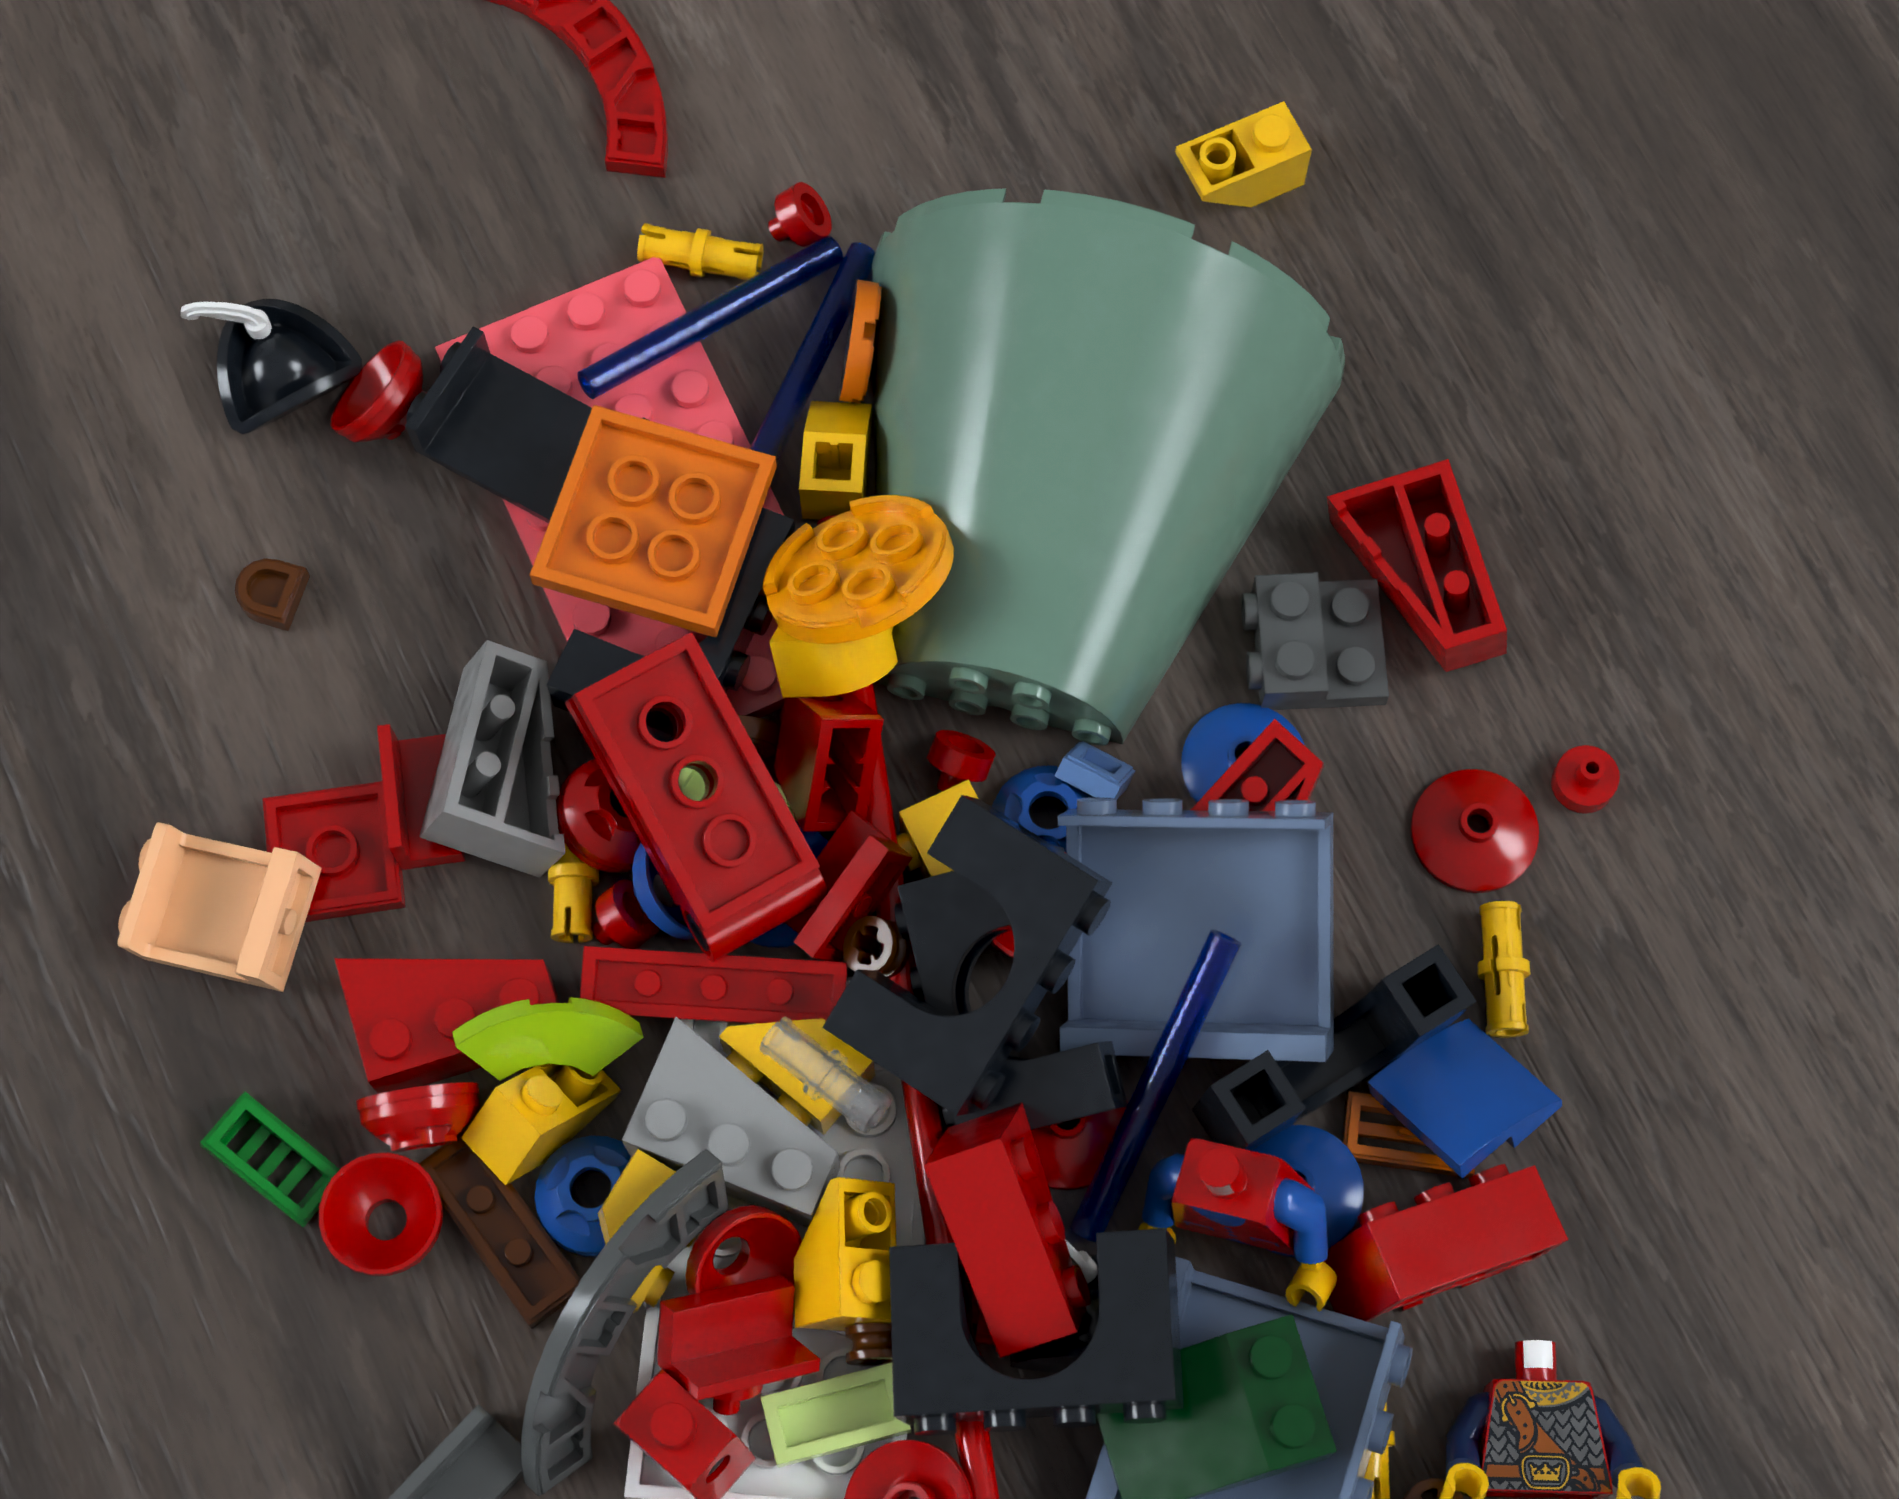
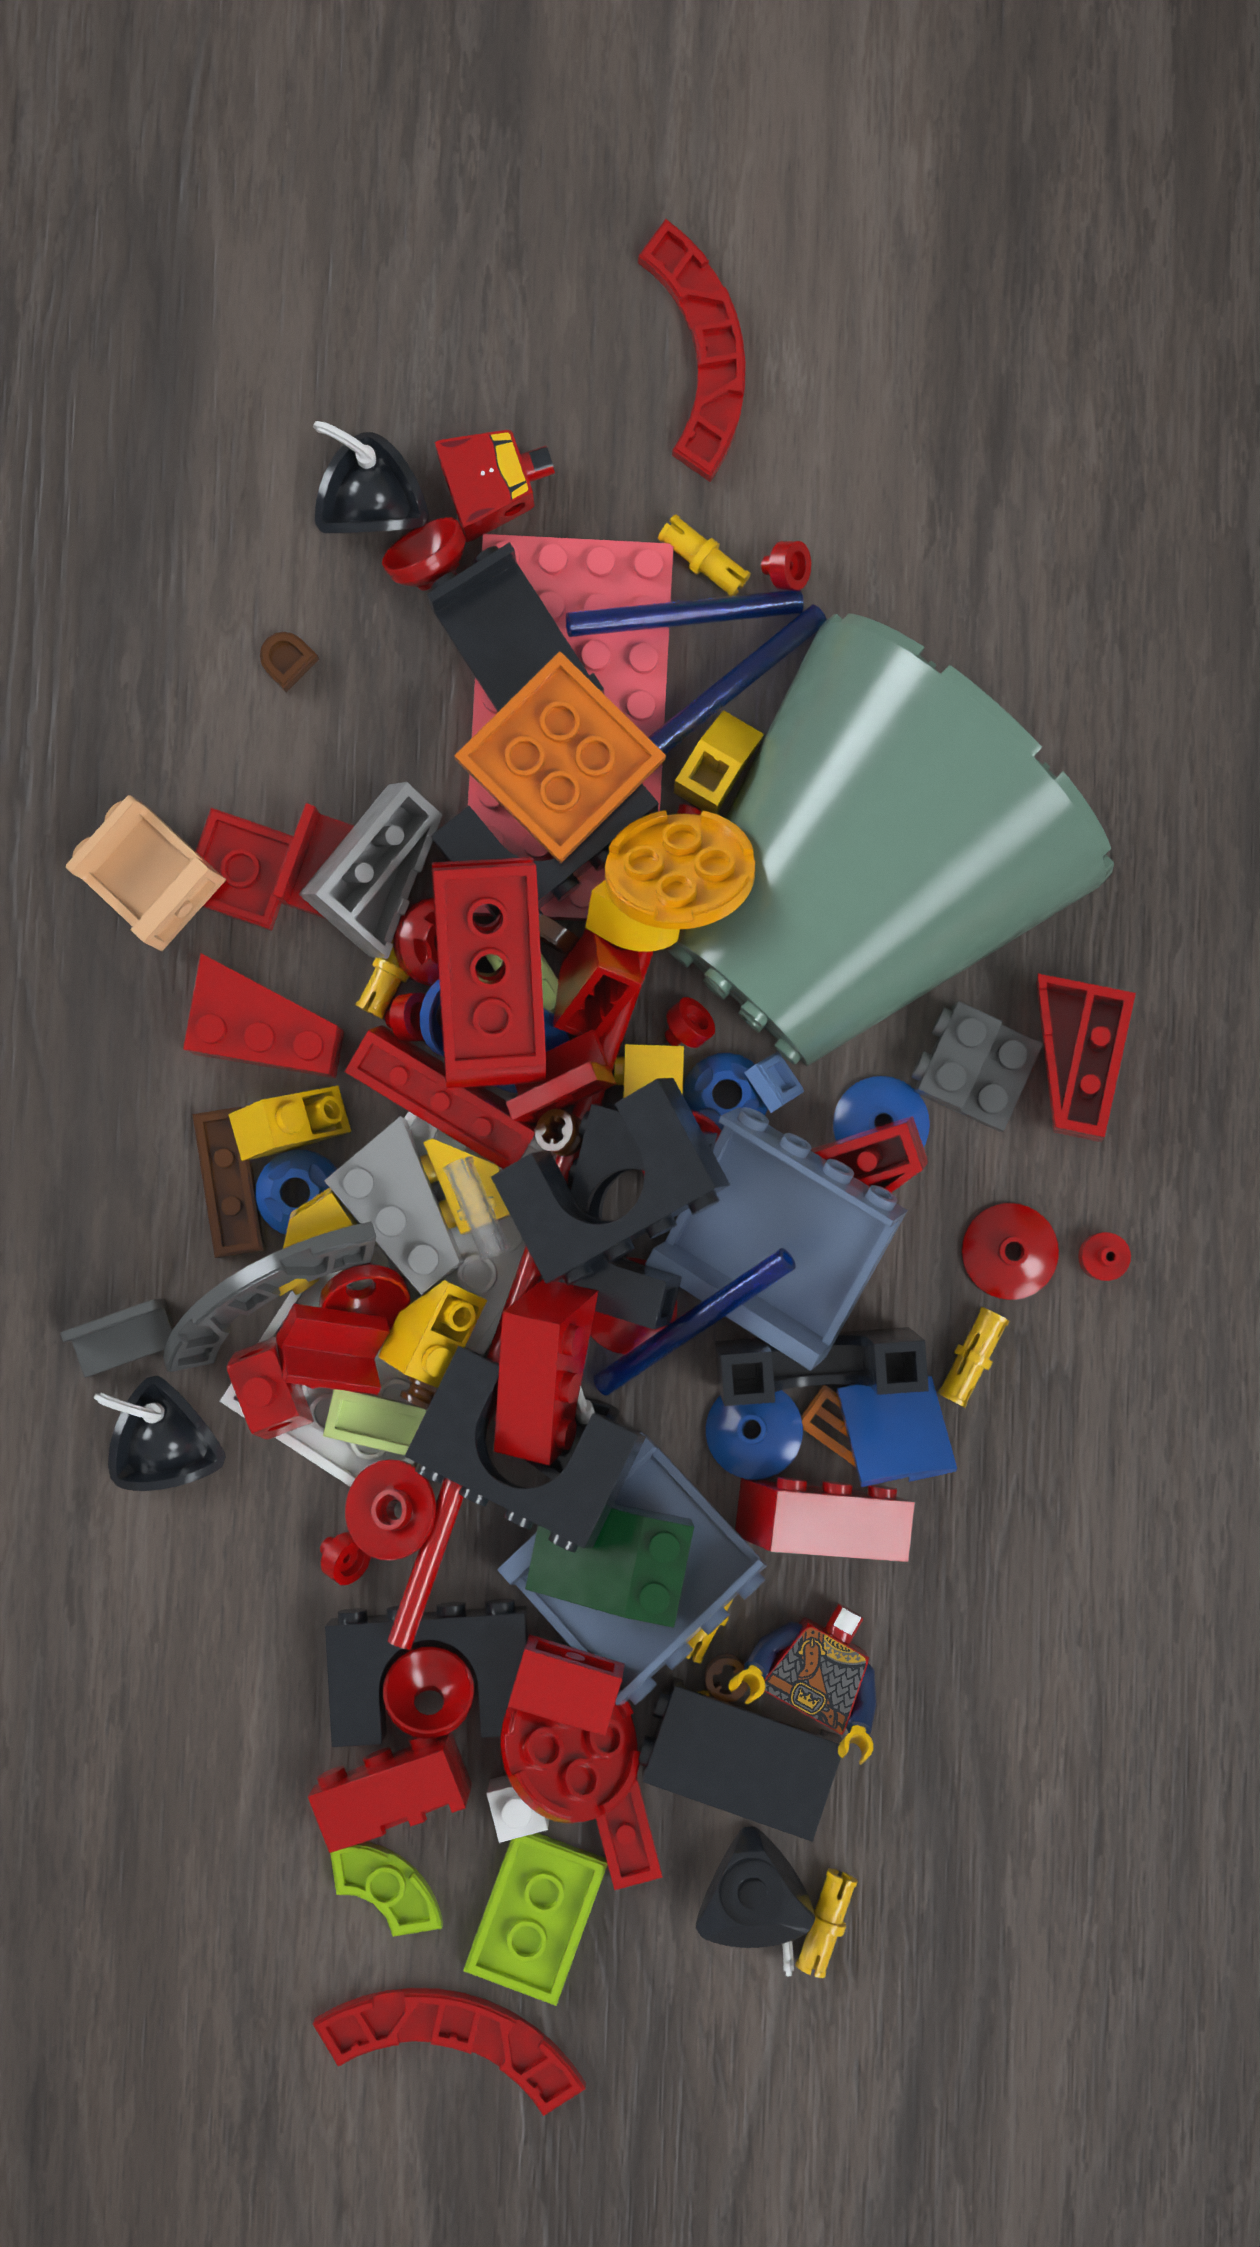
camera: 25 degrees right, 15 degrees up
(231, 1123) = (87, 1069): green slope -> none
(362, 1188) = (129, 1131): red piece -> none
(412, 283) = (490, 478): none -> red torso
(420, 1115) = (208, 1086): red piece -> none
(529, 1035) = (294, 1073): lime tile -> none
(860, 341) = (776, 687): orange tile -> none
(1246, 1201) = (708, 1429): torso -> none
(1248, 159) = (1126, 687): yellow slope -> none

